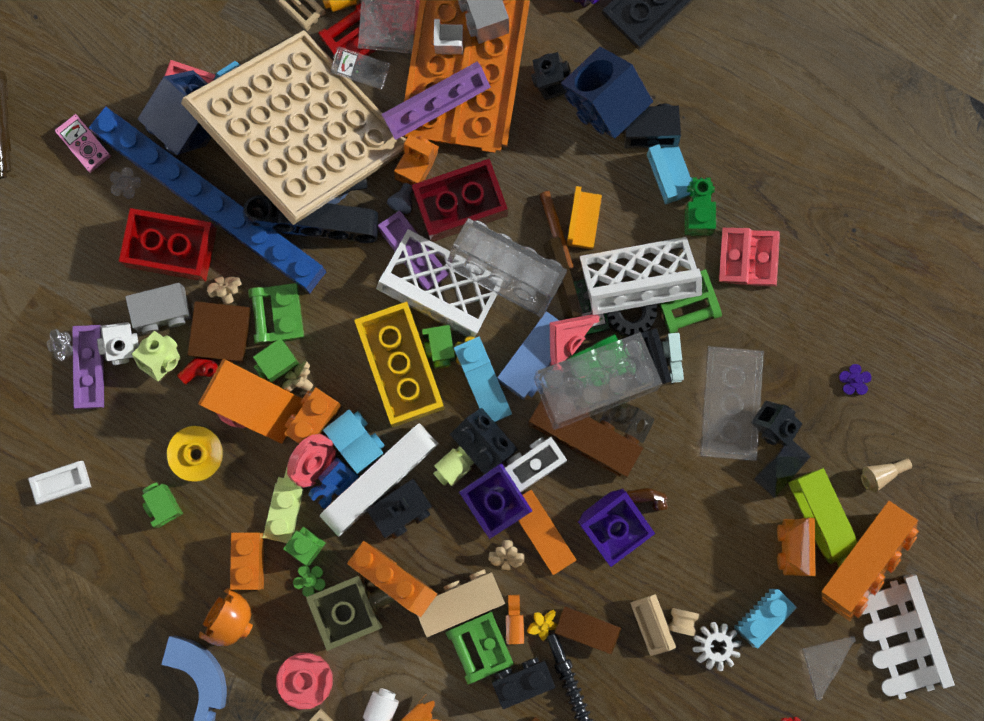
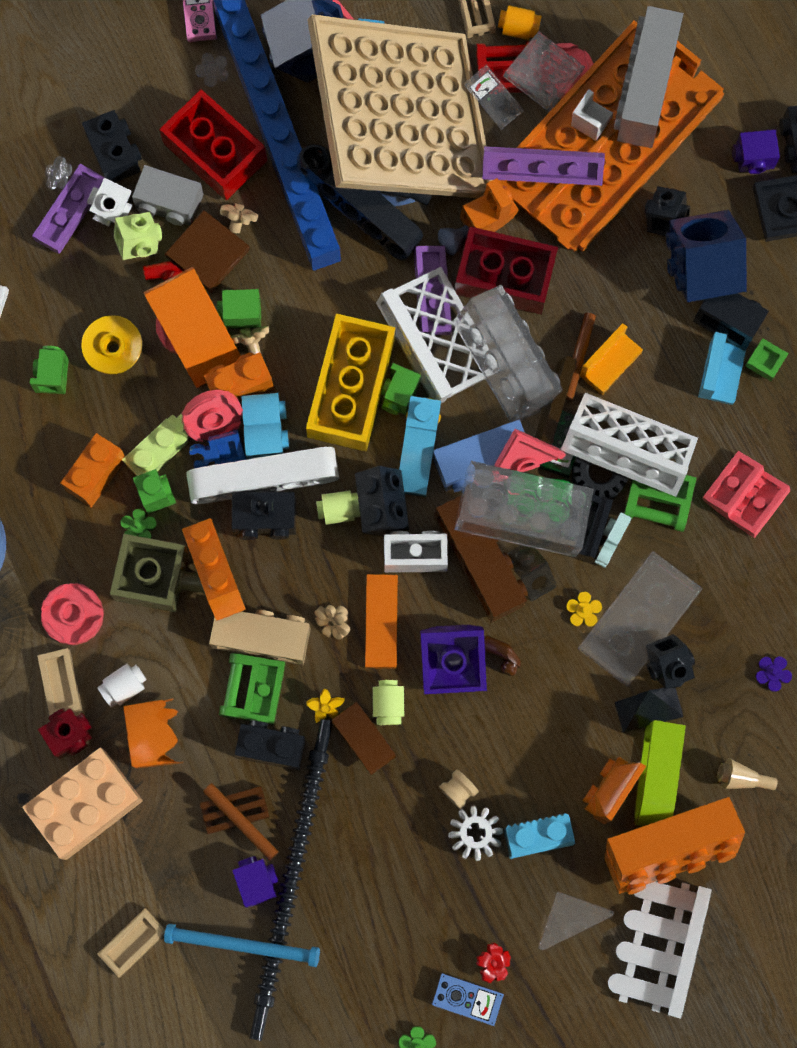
camera: 30 degrees right, 5 degrees down
(87, 296) = (111, 147): none -> black brick
(227, 620) = (40, 512): orange cylinder -> none
(285, 311) = (279, 272): bright green plate -> none
(495, 501) = (356, 561): dark purple slope -> none
(514, 621) = (300, 685): orange bar -> none
(588, 591) = (388, 702): none -> yellowish green brick
(653, 625) = (428, 773): tan tile -> none
(686, 423) = (583, 609): none -> yellow plant
(699, 143) = (766, 359): none -> bright green plate
(700, 212) = (728, 418): green brick -> none

